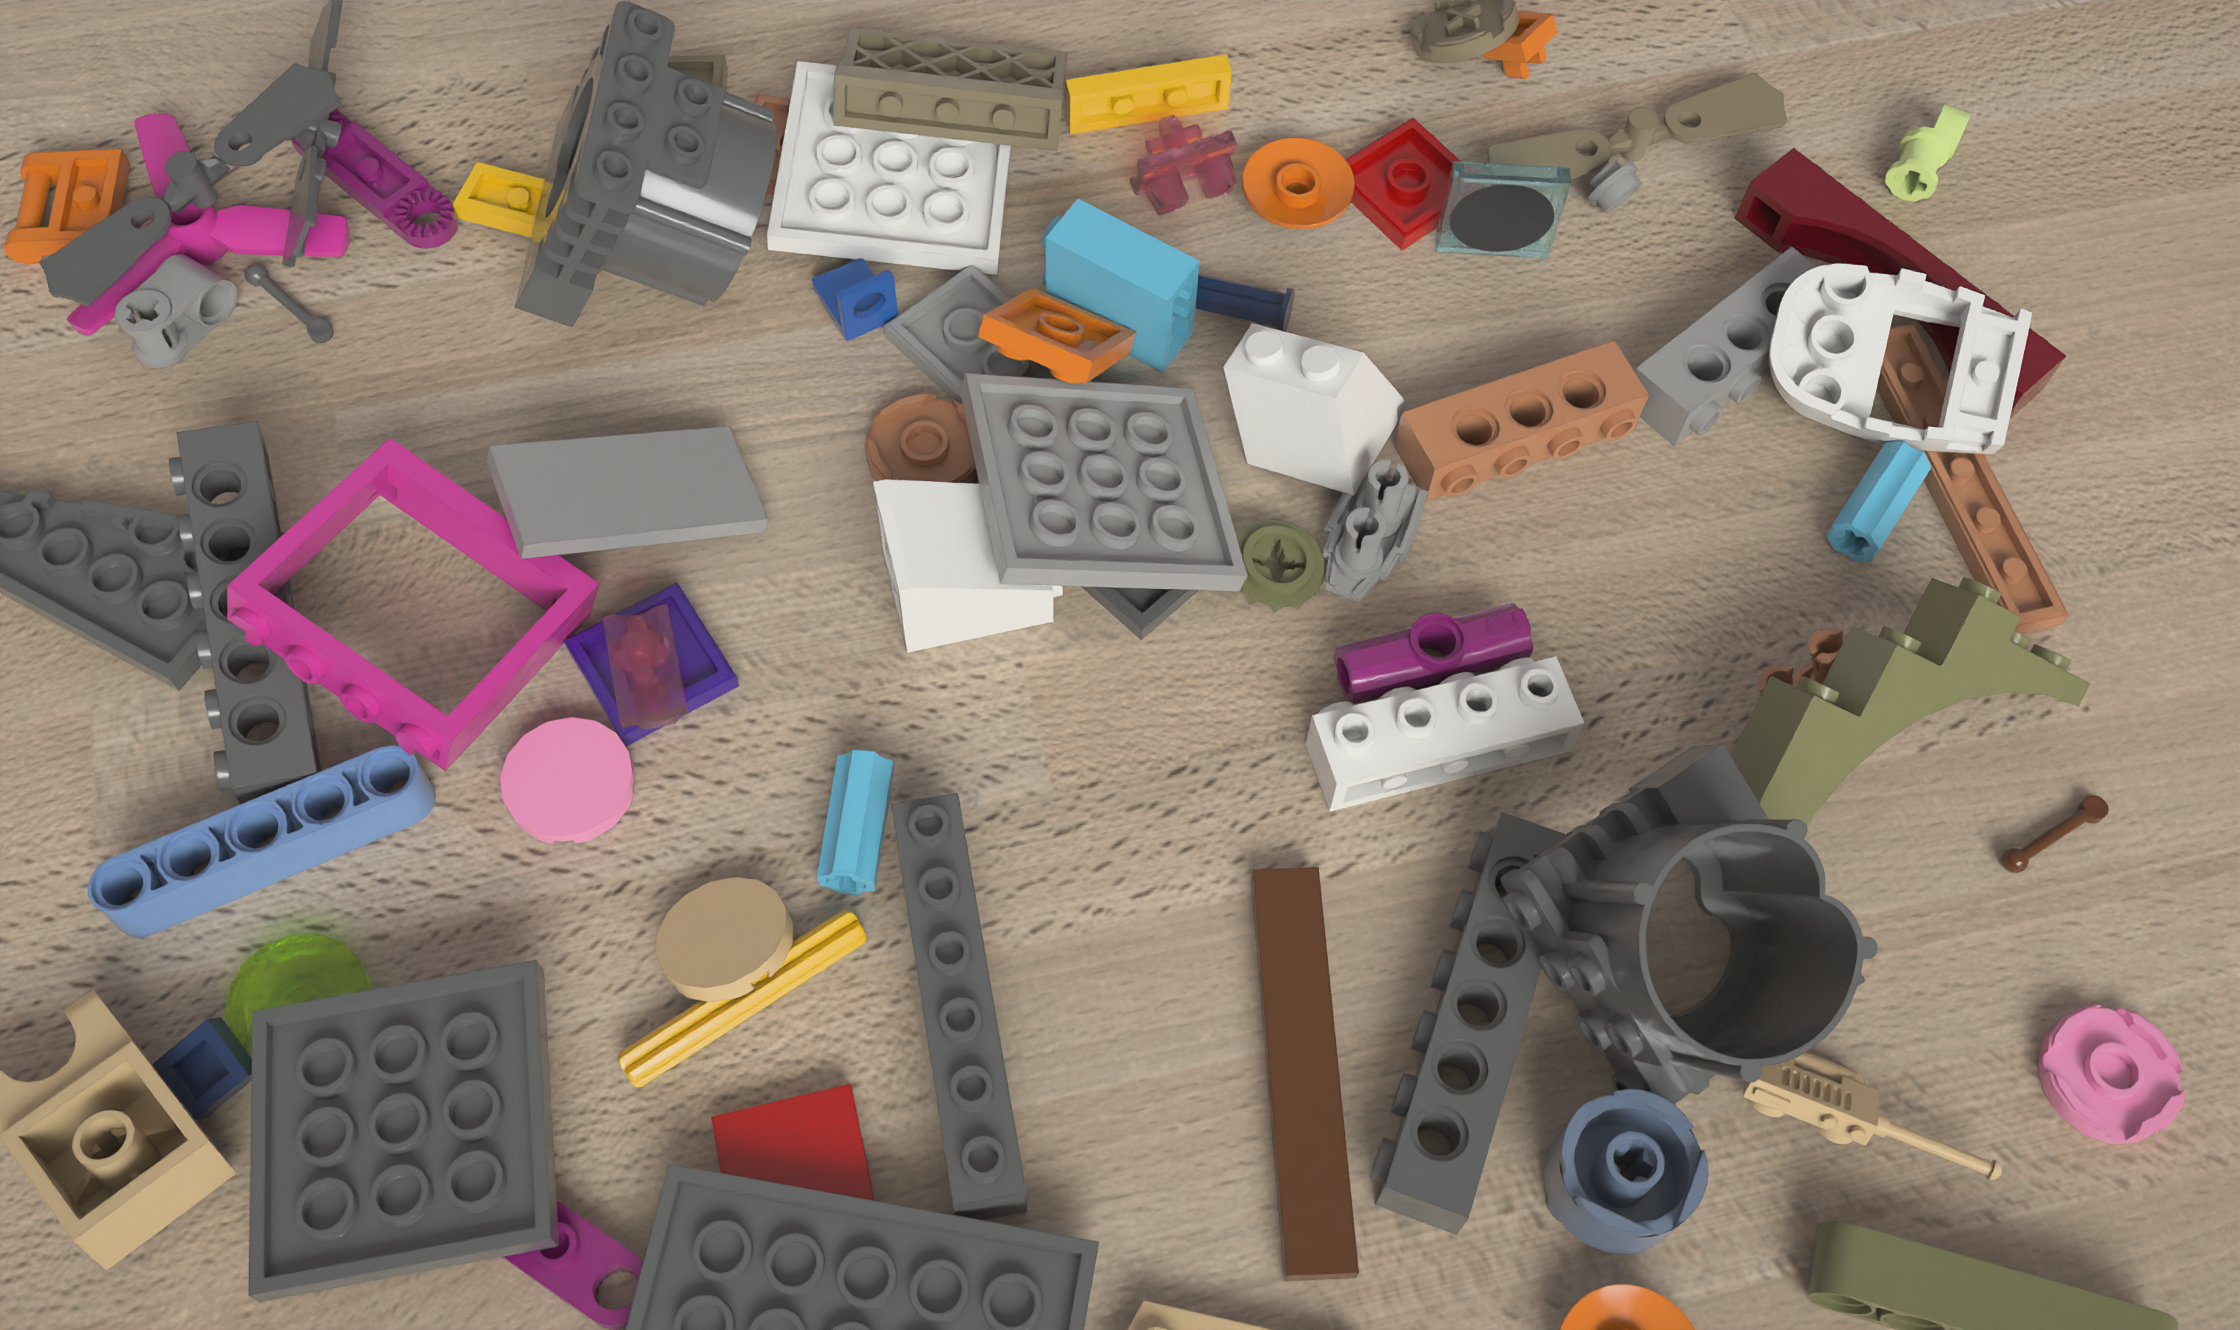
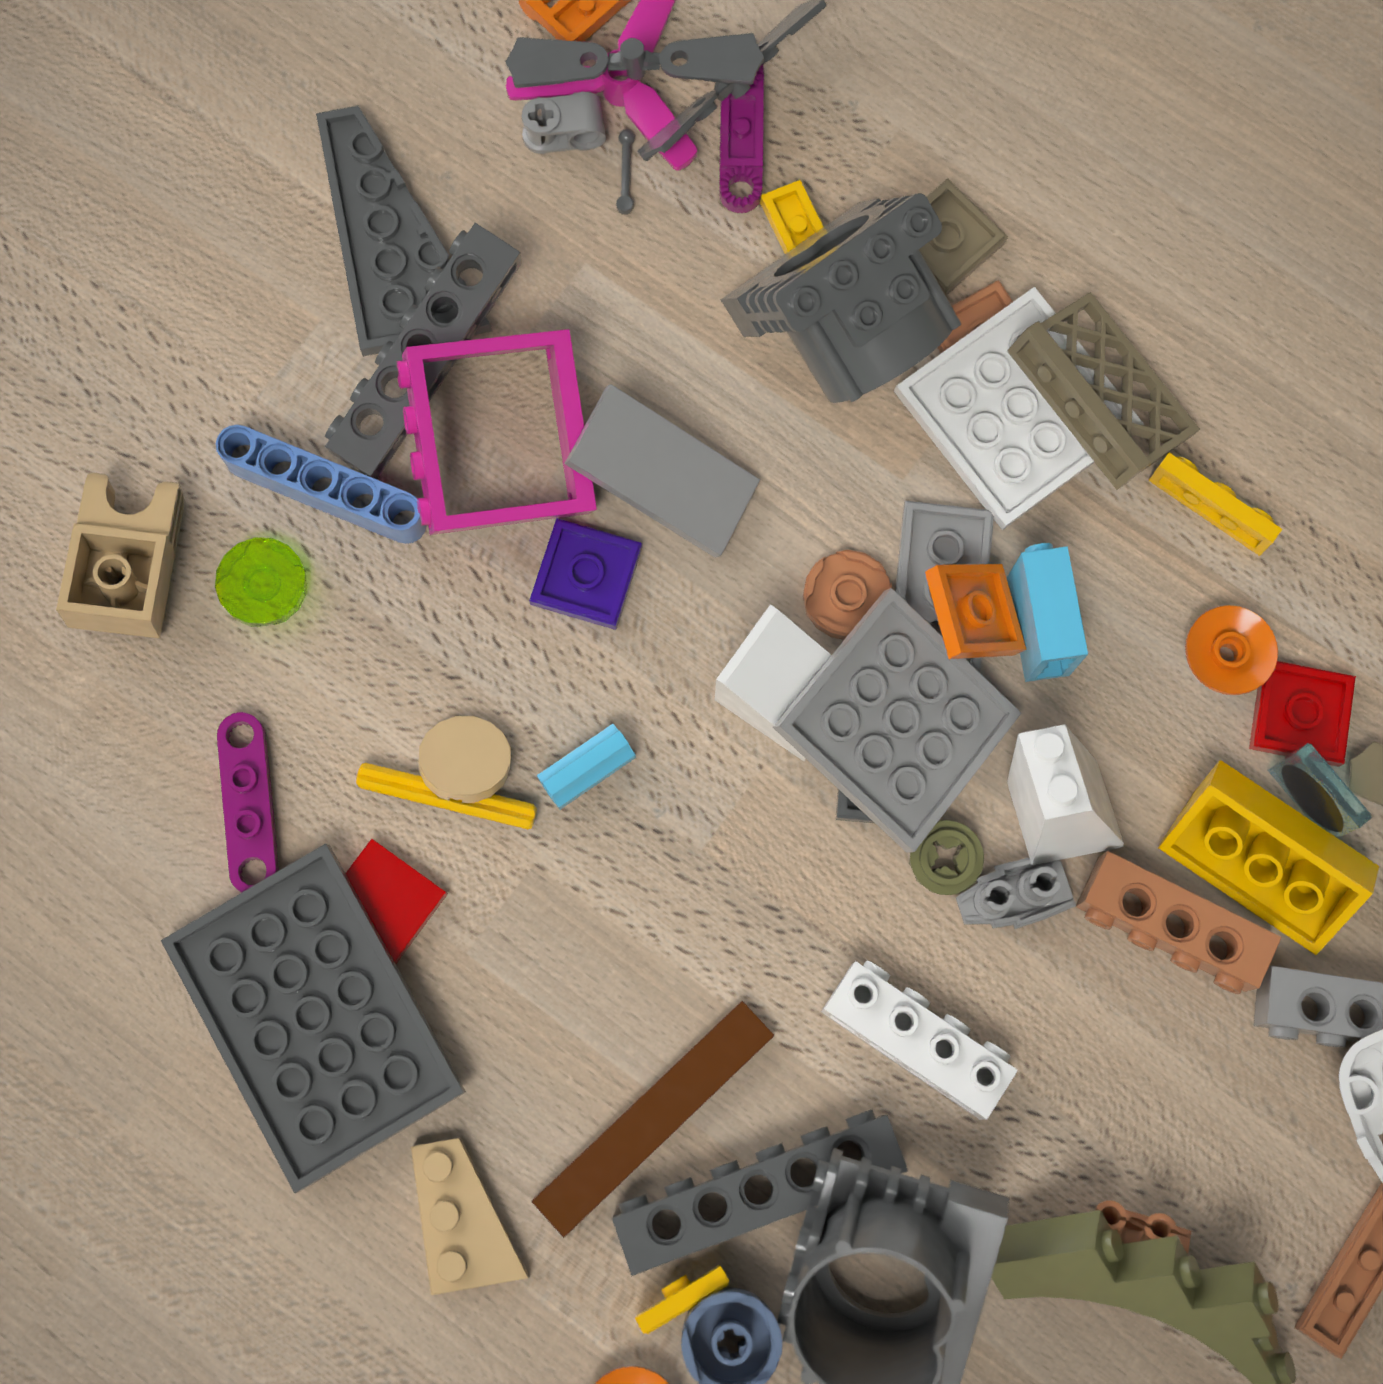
camera: 50 degrees right, 15 degrees up
(206, 1067) = (192, 575): dark blue plate -> none
(400, 1131) = (236, 699): dark grey plate -> none
(568, 780) = (483, 596): bright pink tile -> none
(645, 668) = (568, 581): clear pink hips -> none
(857, 297) = (908, 467): blue bracket -> none
(959, 1010) = (529, 910): dark grey brick -> none
(1181, 155) = (1198, 583): clear pink hips -> none
(1245, 301) = (1108, 676): dark blue axle -> none
(1467, 642) = (992, 1011): magenta piece -> none
(1523, 303) = (1270, 858): none -> yellow slope
(1531, 1192) = (680, 1297): none -> yellow plate
(1878, 501) = (1320, 1183): medium azure axle -> none

